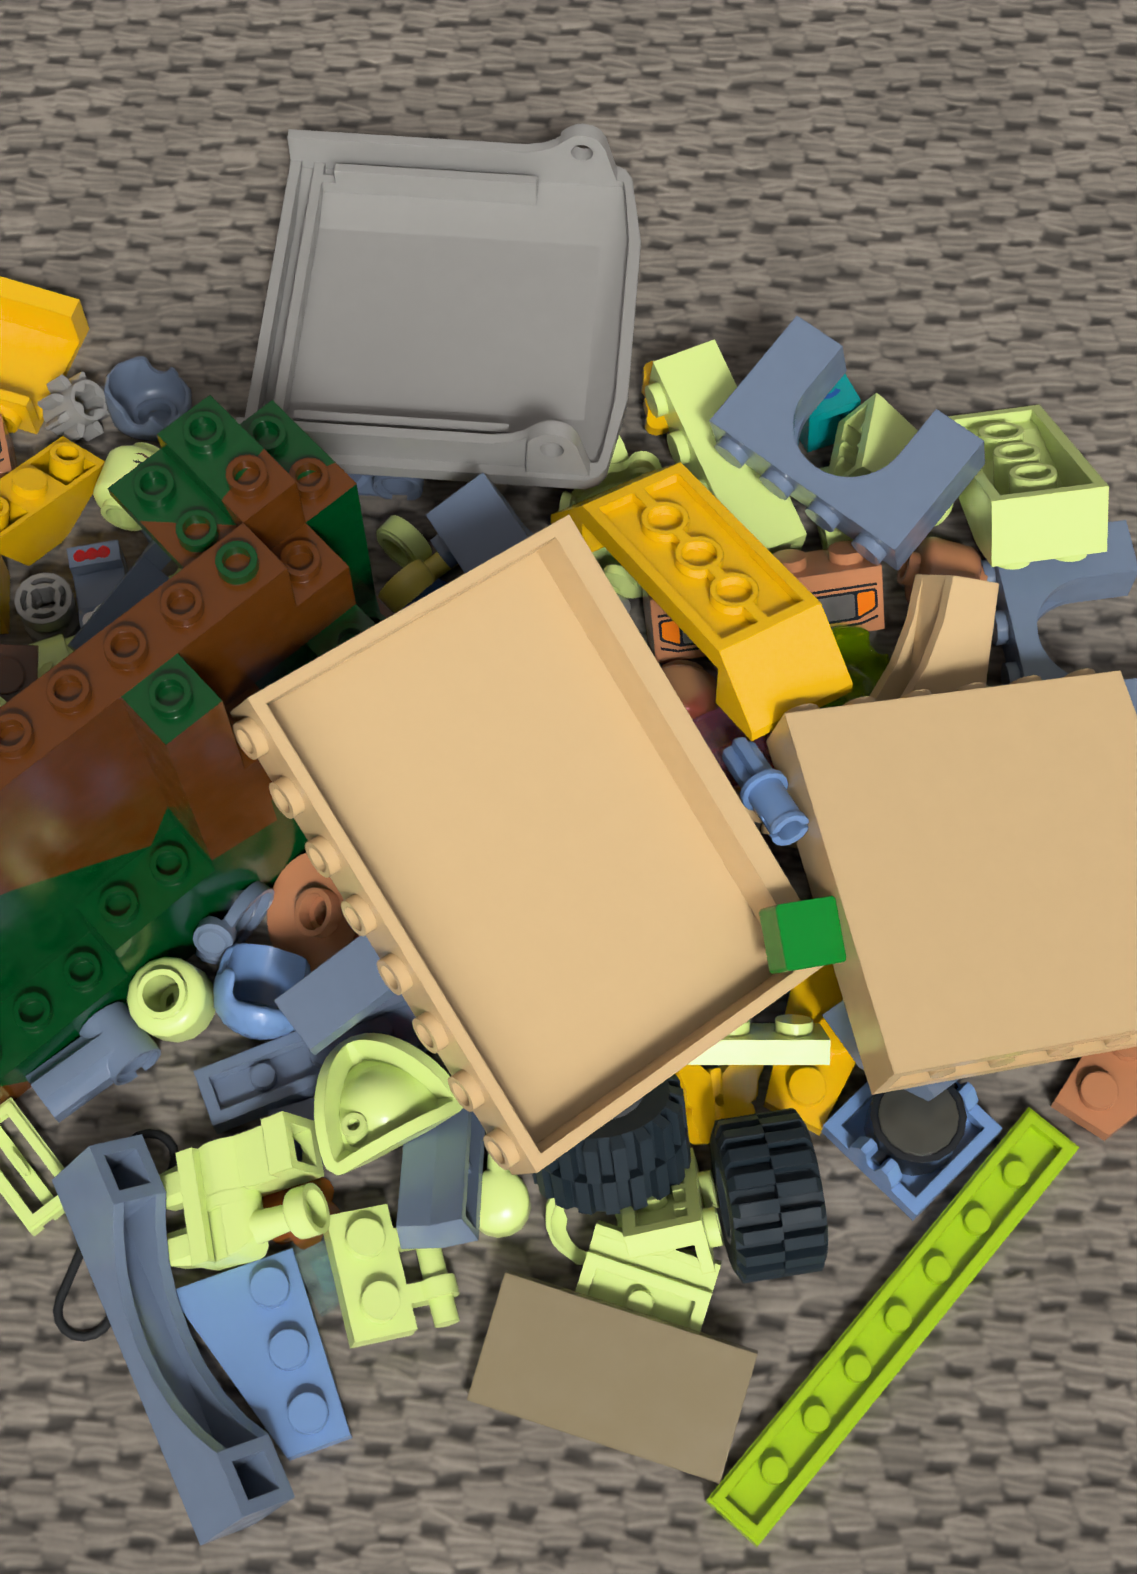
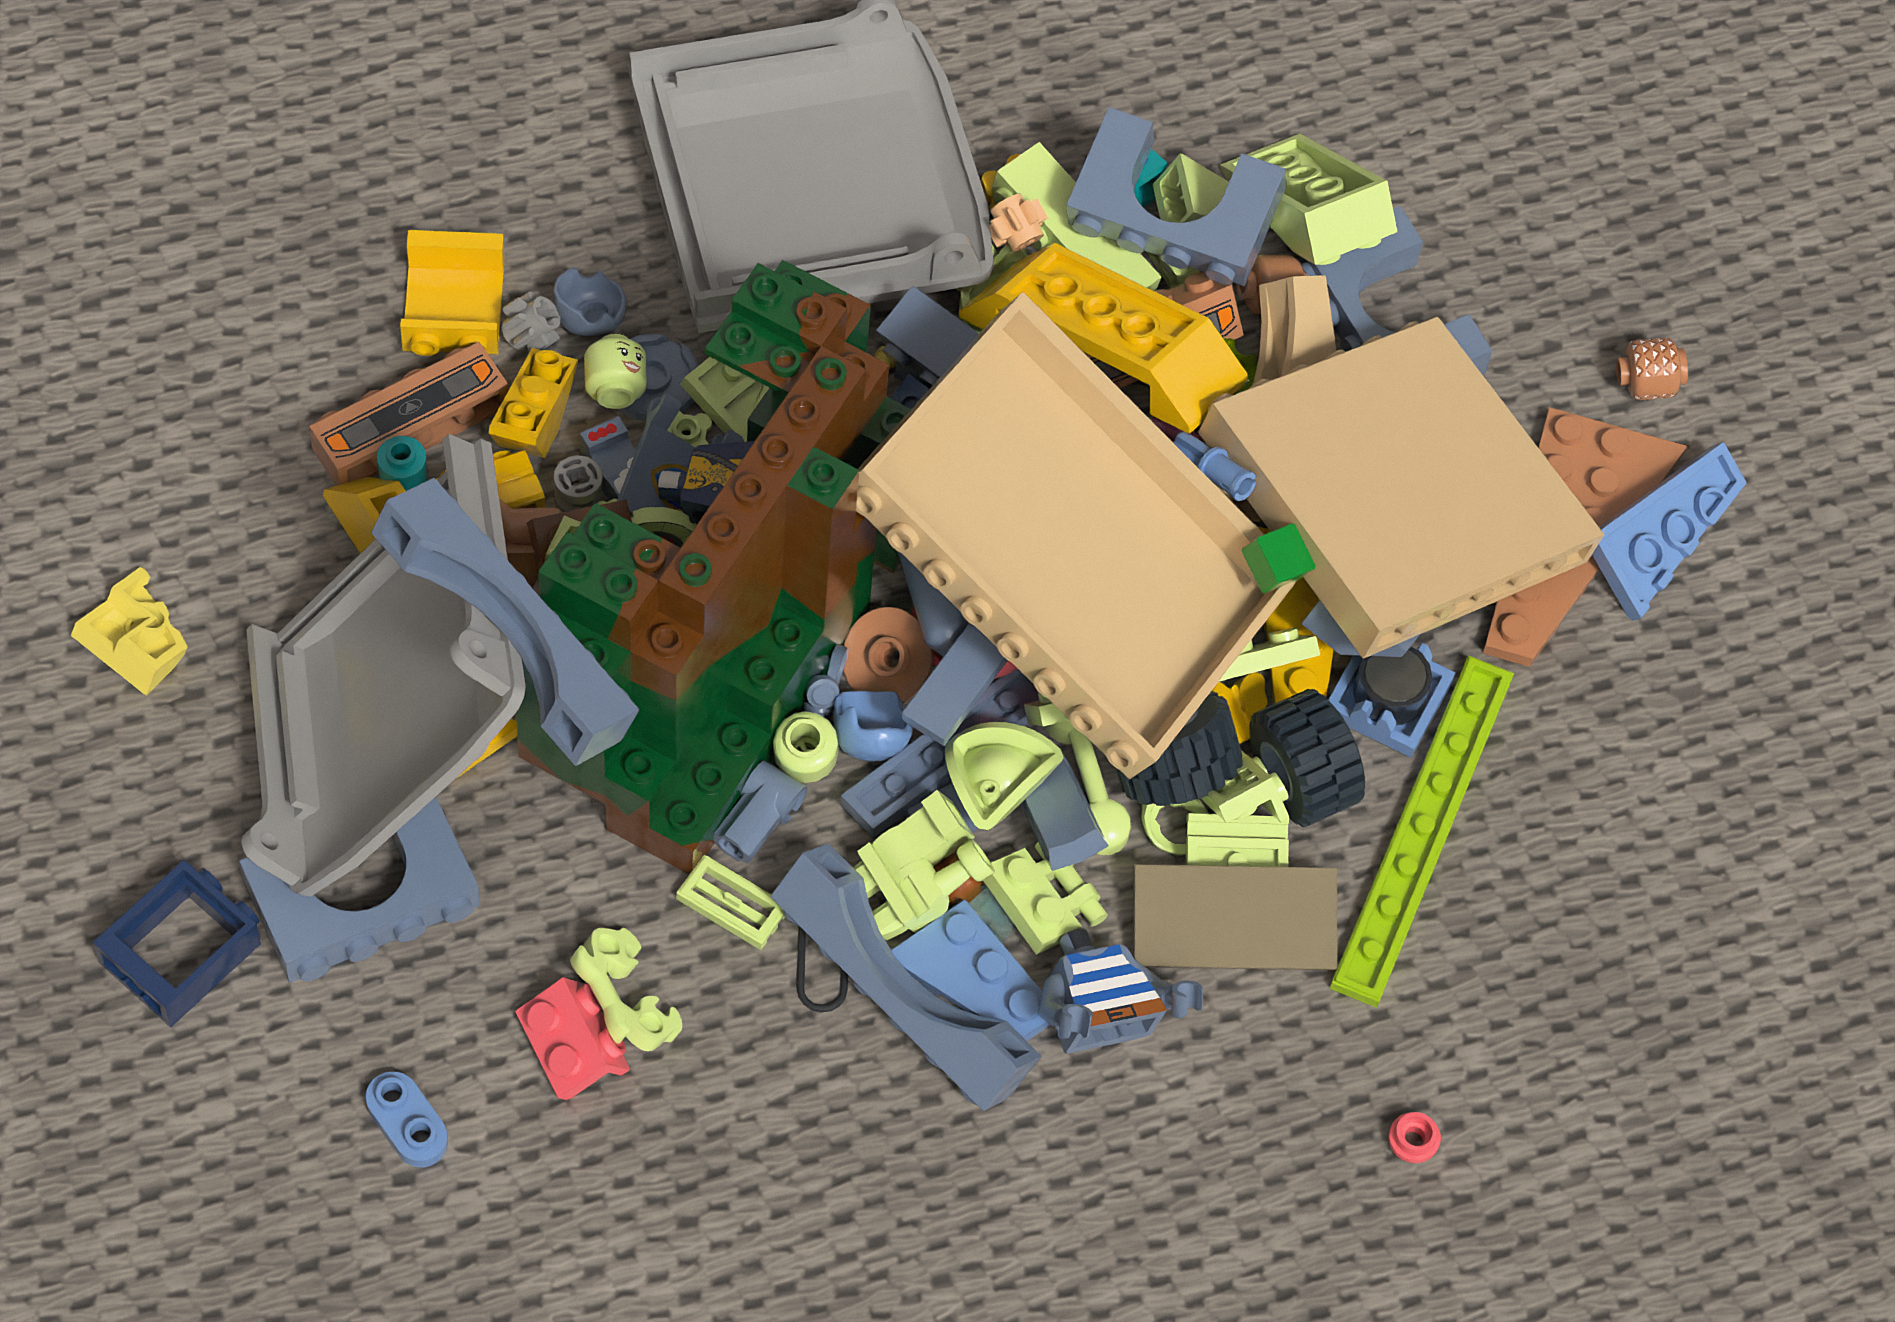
camera: 25 degrees left, 5 degrees down
(406, 1436) = (1108, 995): none -> torso
(652, 427) = (1017, 222): none -> light nougat gear

